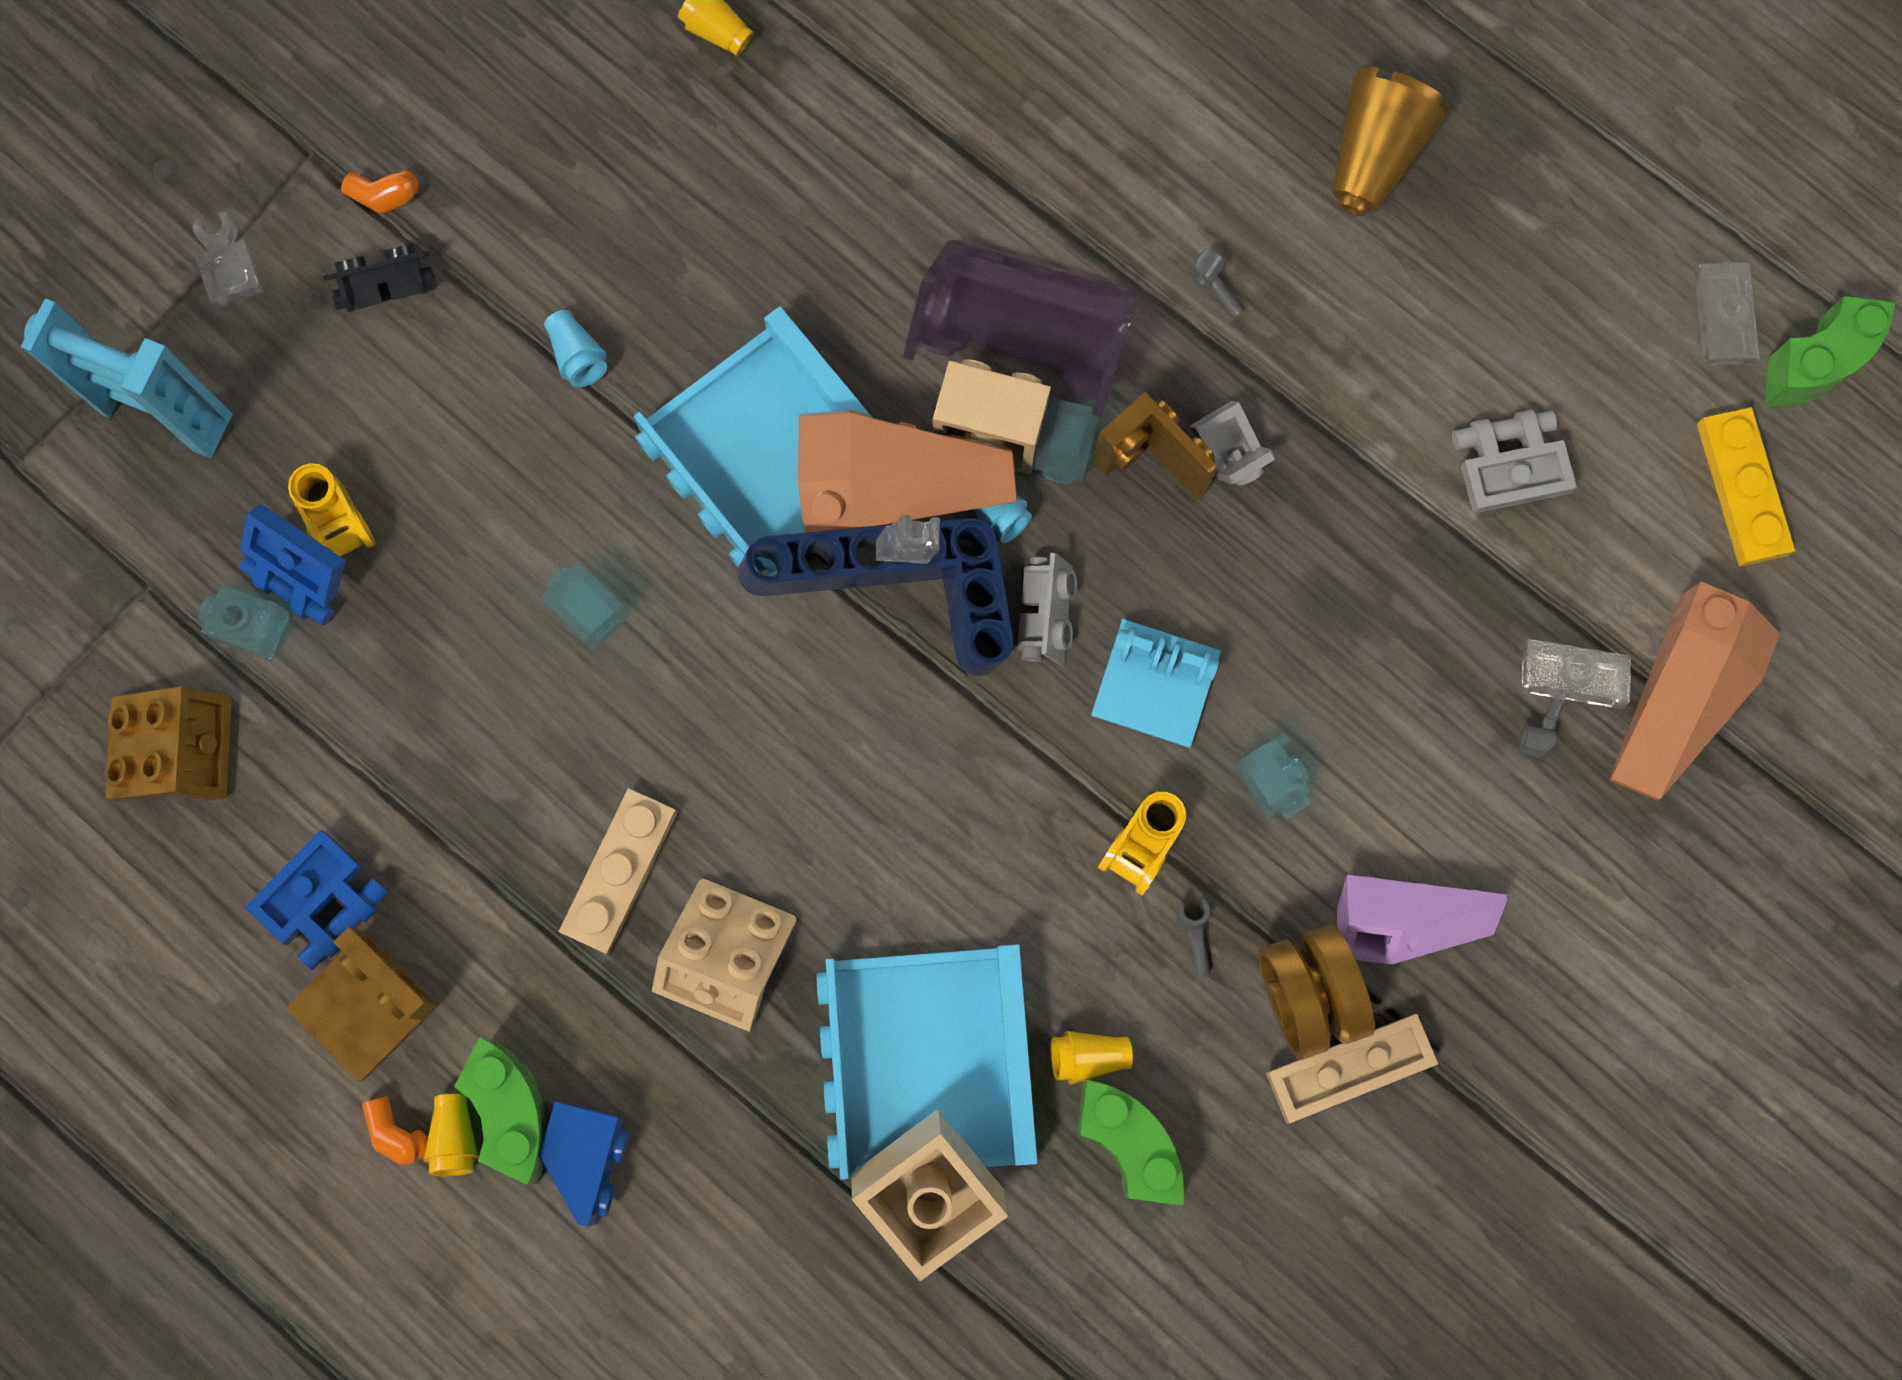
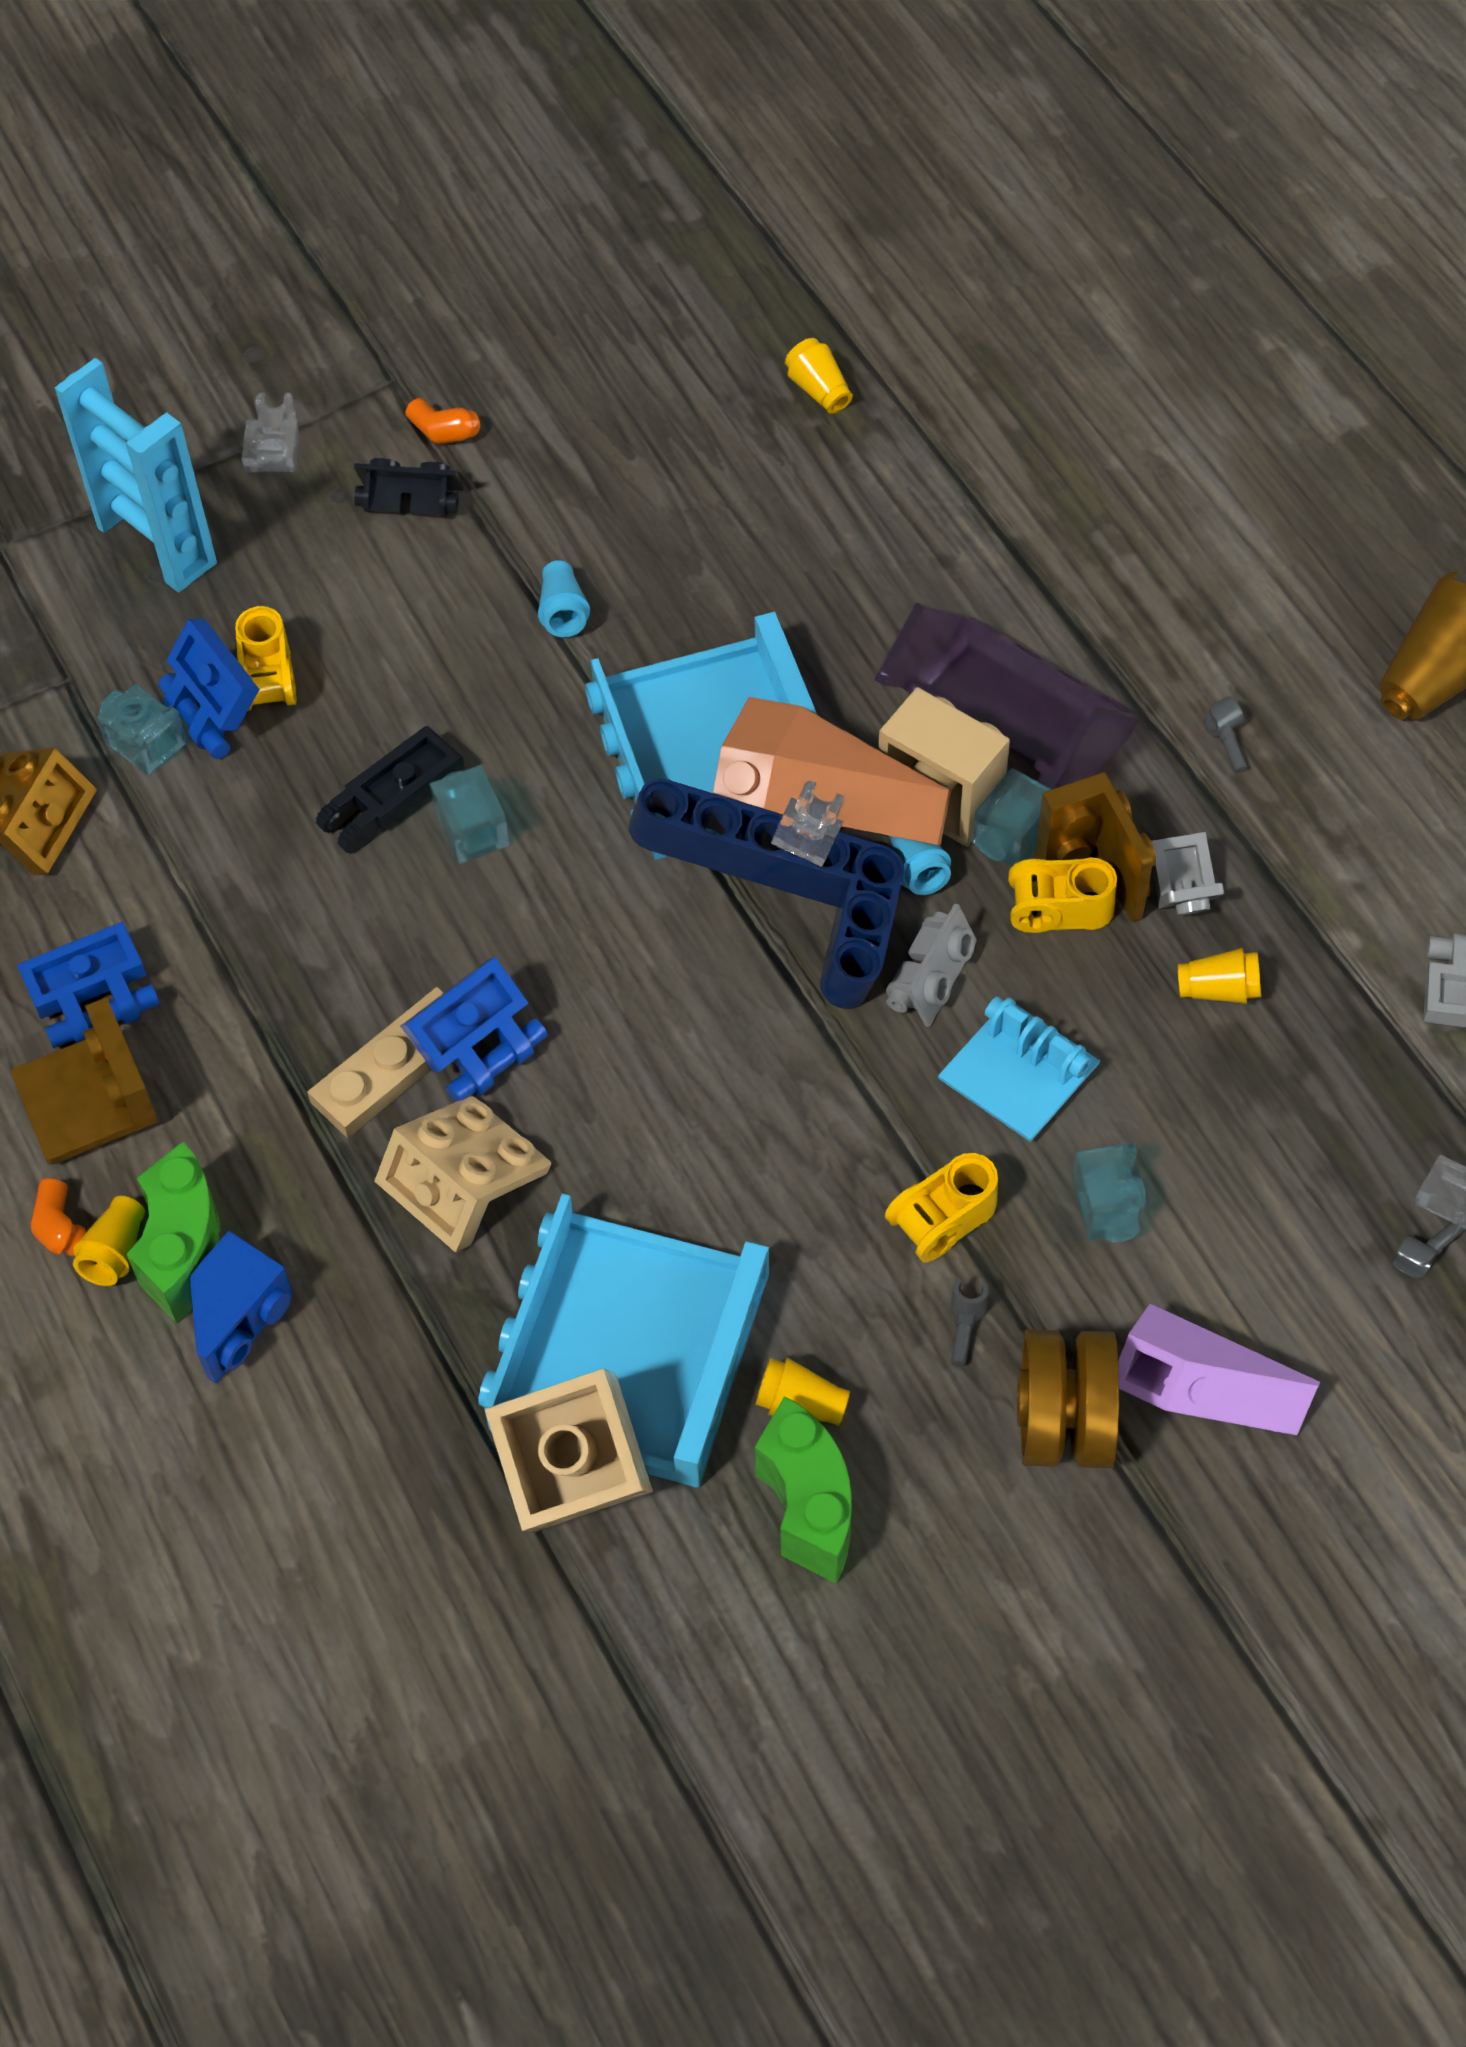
camera: 25 degrees right, 20 degrees down
(503, 600) = (389, 788): none -> black hinge
(670, 819) = (463, 1017): none -> blue plate
(1130, 504) = (1060, 894): none -> yellow piece
(1296, 534) = (1221, 977): none -> yellow cone
(1351, 1069) = (1083, 1506): tan plate -> none

